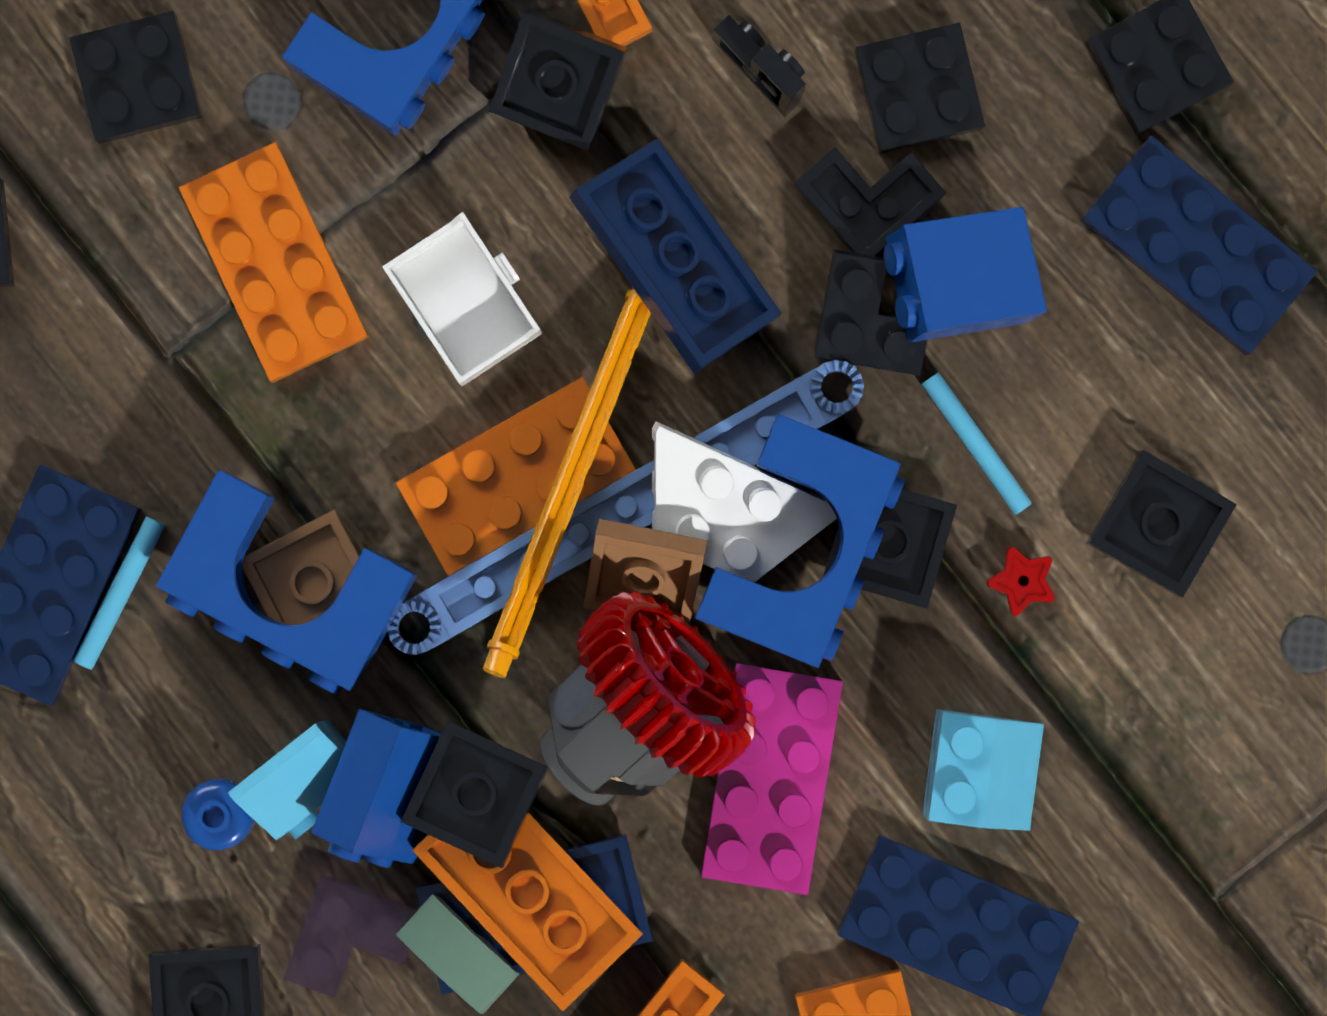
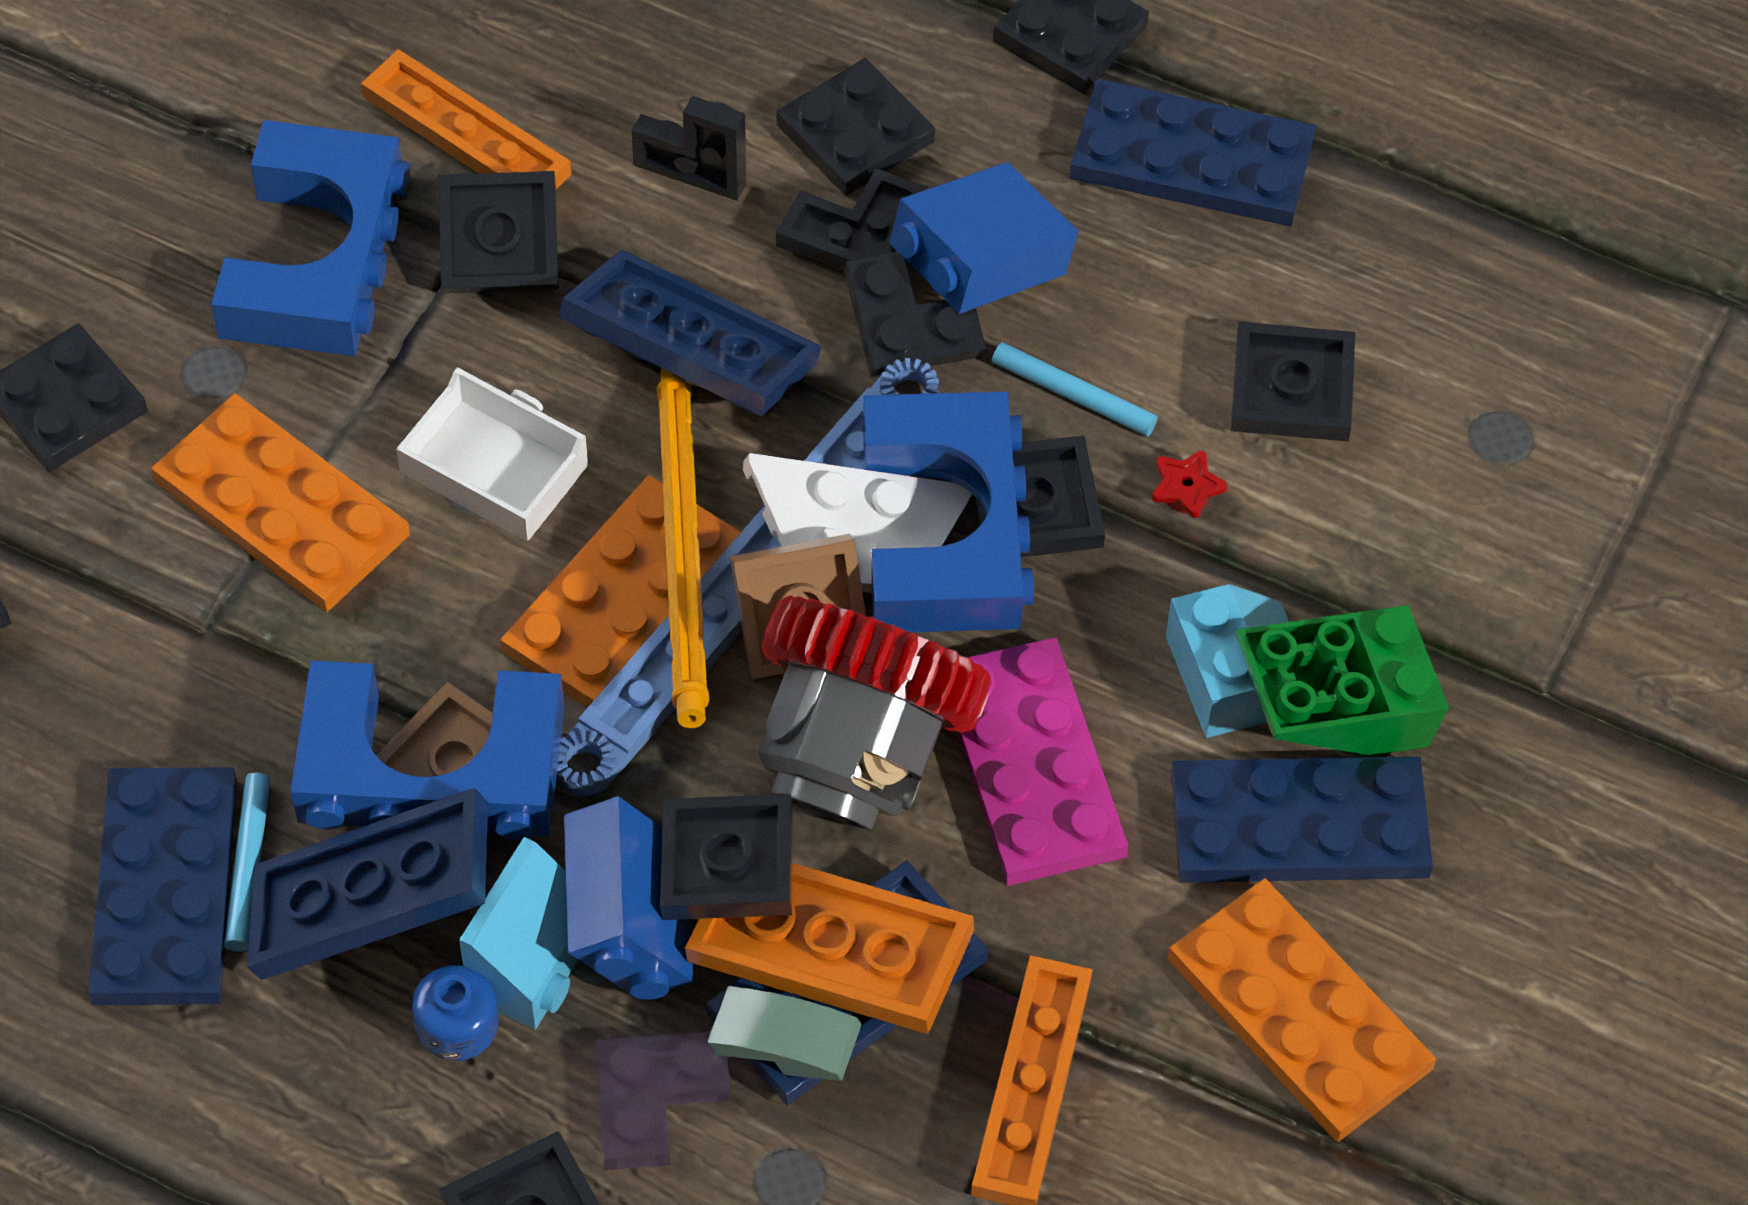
camera: 20 degrees left, 30 degrees down
(190, 687) = (368, 884): none -> dark blue plate
(1045, 844) = (1346, 681): none -> green slope

